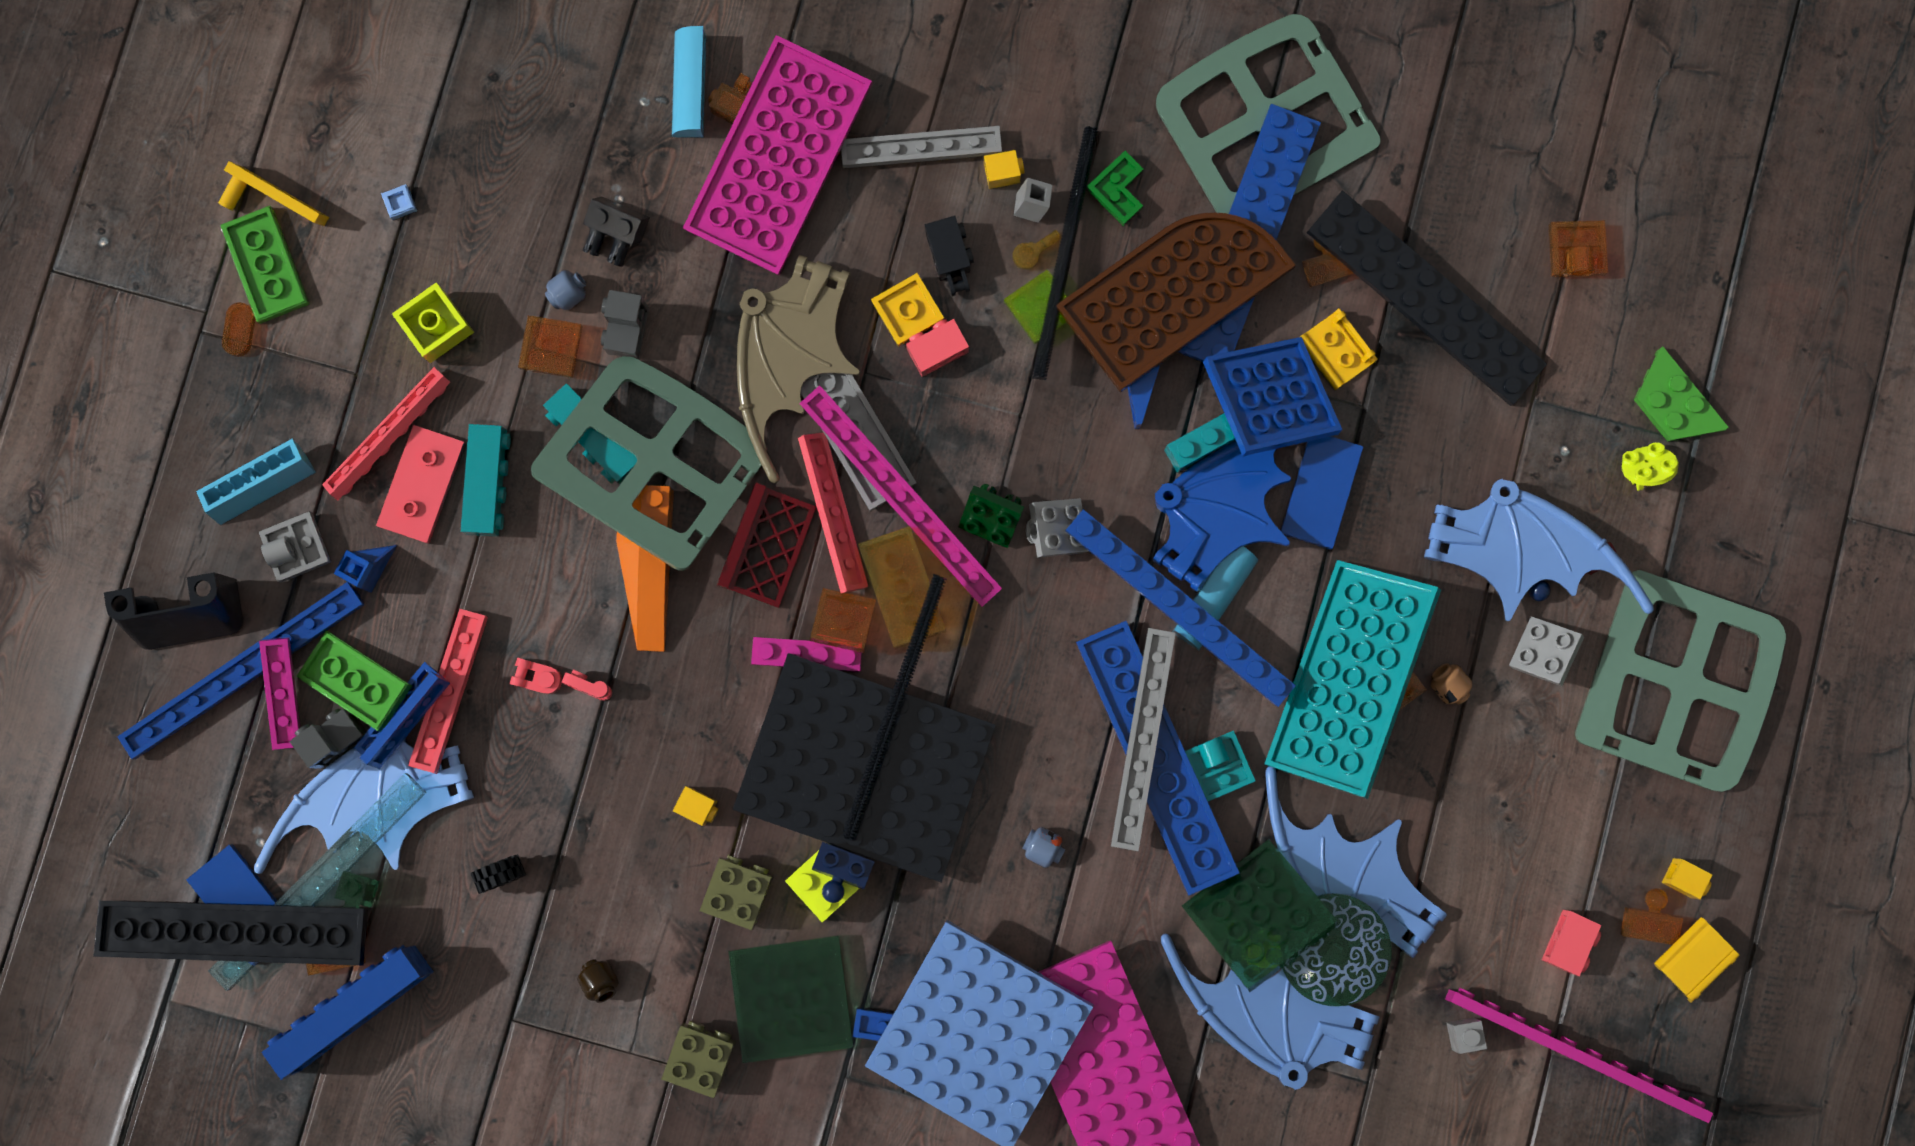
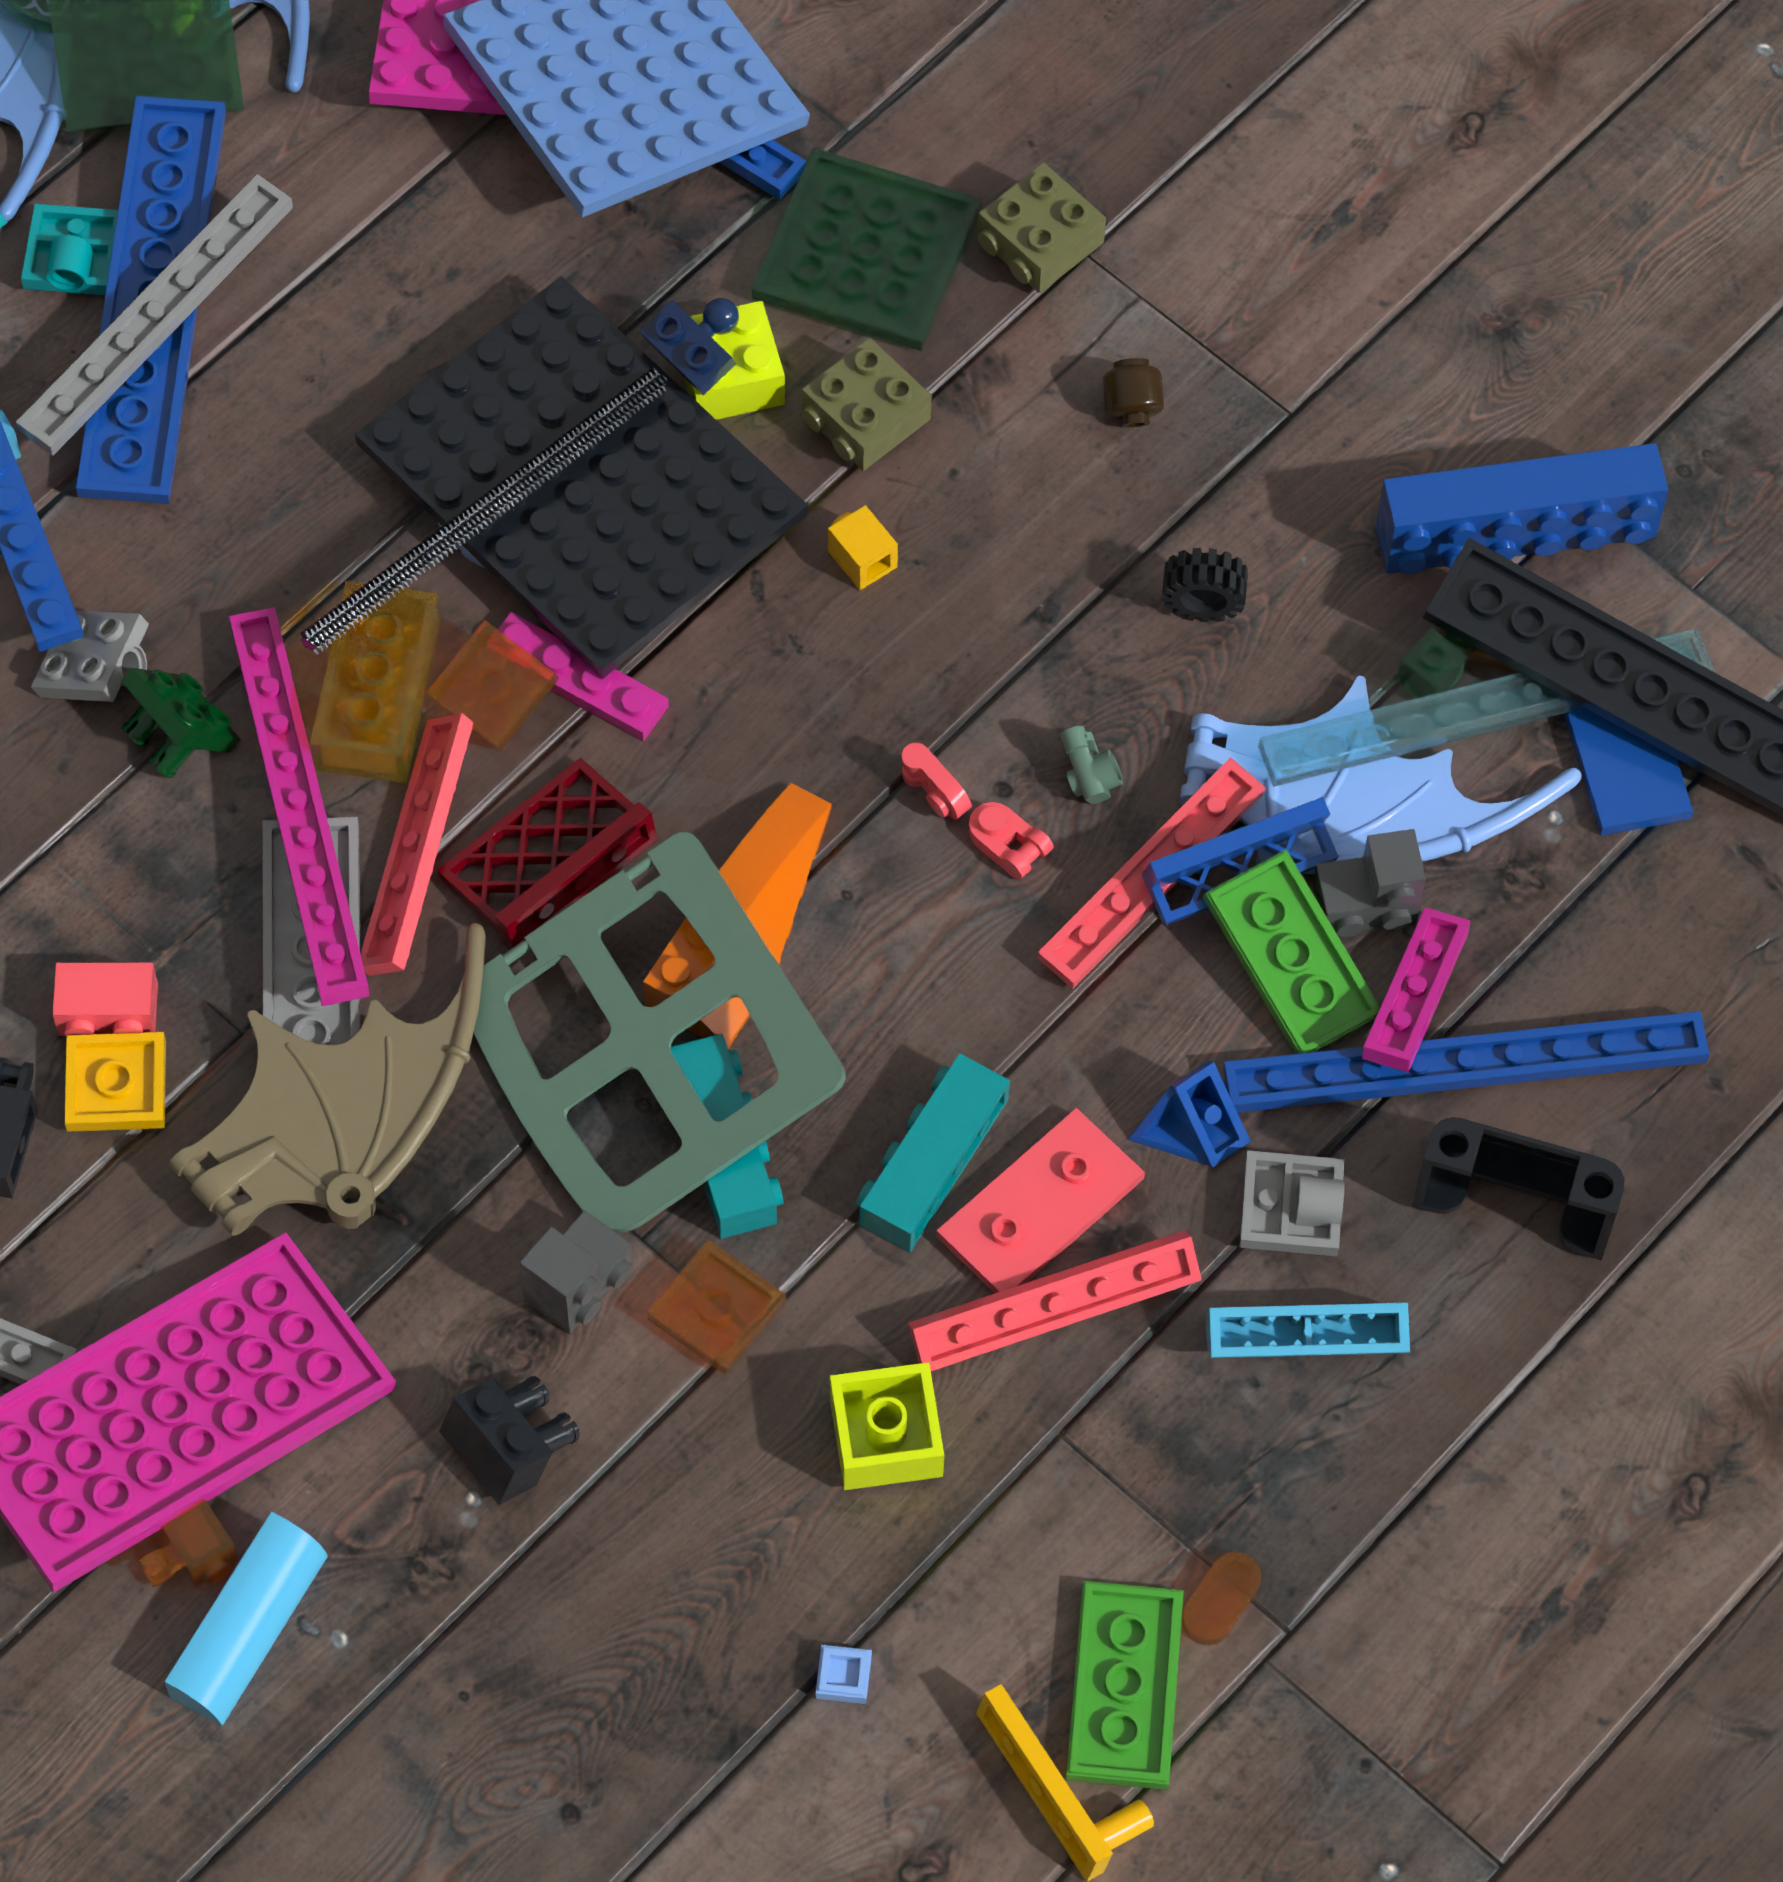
camera: 155 degrees left, 20 degrees down
(509, 734) = (1093, 771): none -> sand green plate
(565, 290) = (641, 1378): sand blue head -> none
(1043, 847) = (389, 265): sand blue head -> none

